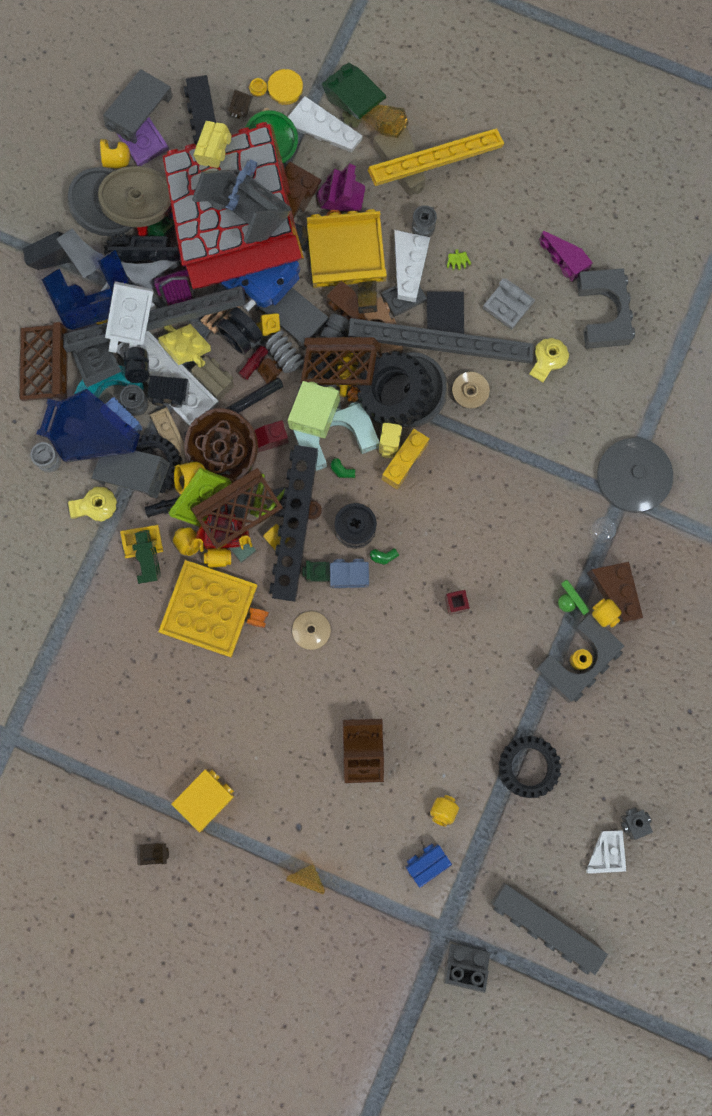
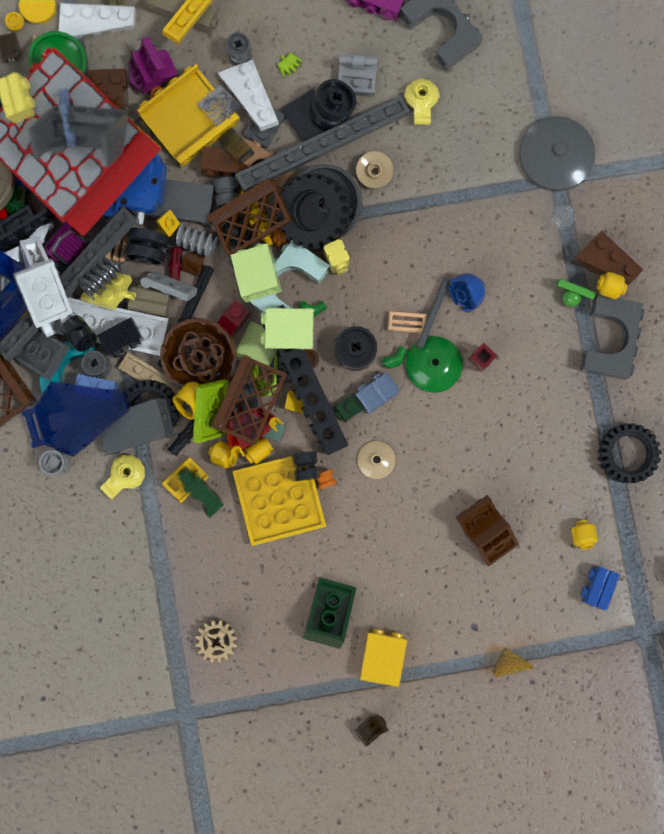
camera: 30 degrees left, 5 degrees up
(79, 702) = (224, 646): none -> tan gear
(144, 275) = (32, 252): none -> white slope
(183, 331) = (99, 278): none -> dark grey piece
(184, 732) = (329, 613): none -> dark green slope
(236, 374) = (169, 286): none -> light grey plate
(247, 594) = (304, 459): none -> black wheel
(275, 469) = (252, 347): none -> yellowish green piece
(307, 469) = (287, 328): none -> yellowish green brick
(376, 256) = (218, 105): none -> clear piece
(405, 458) = (359, 264): yellow arch -> none
(409, 595) = (430, 377): none -> green dish
(426, 542) = (404, 322): none -> light nougat tile
(440, 539) = (432, 314): none -> dark grey bar
(471, 313) = (332, 103): none -> black wheel
(482, 539) = (467, 291): none -> blue cylinder
(575, 661) = (609, 340): yellow brick -> none

